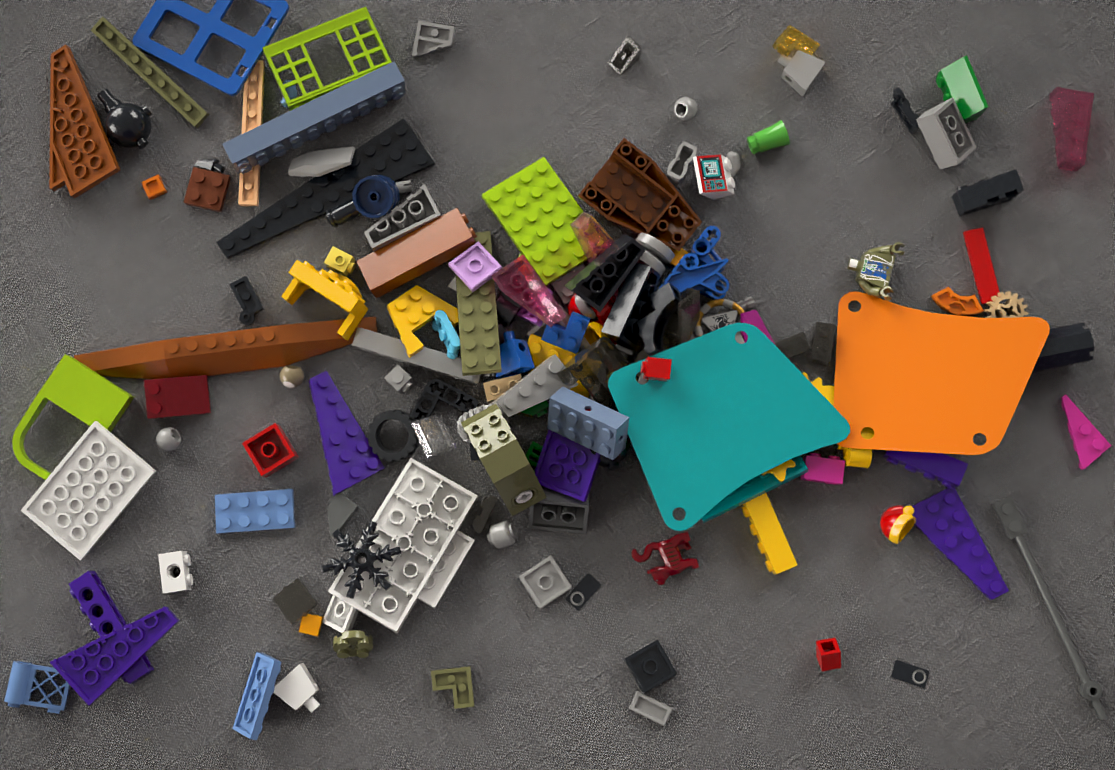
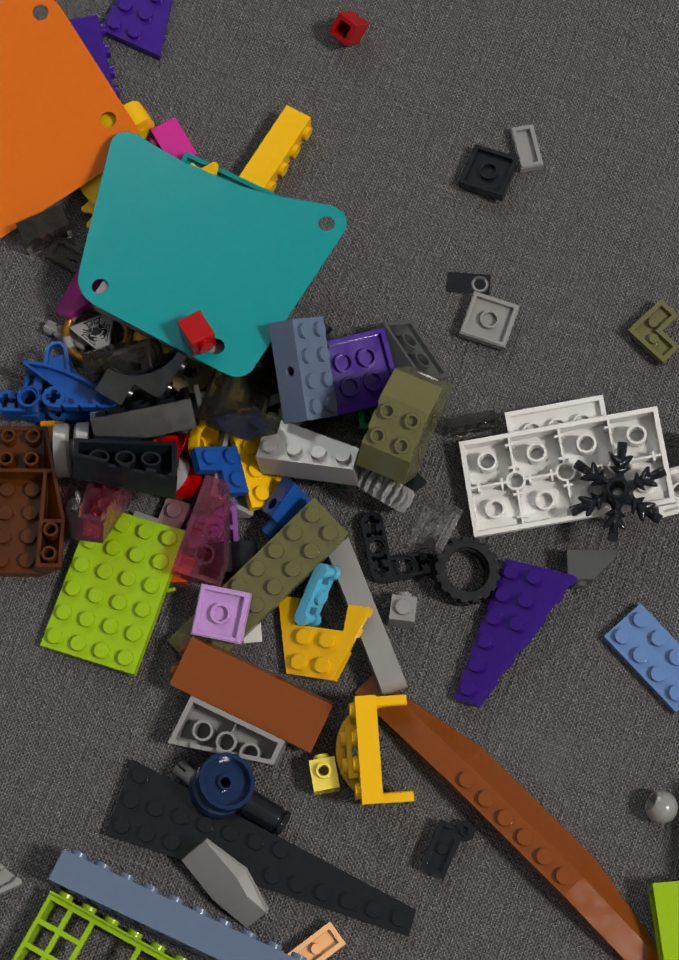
camera: 130 degrees left, 10 degrees down
(177, 396) = (610, 835): dark red slope -> none
(270, 450) = (584, 685): red brick -> none
(291, 376) = (488, 727): dark tan piece -> none
(496, 388) = (332, 497): tan brick -> none
(502, 534) = (477, 392): light grey head -> none
(670, 554) = (370, 222): dark red animal -> none
(897, 522) = (175, 49): piece -> none

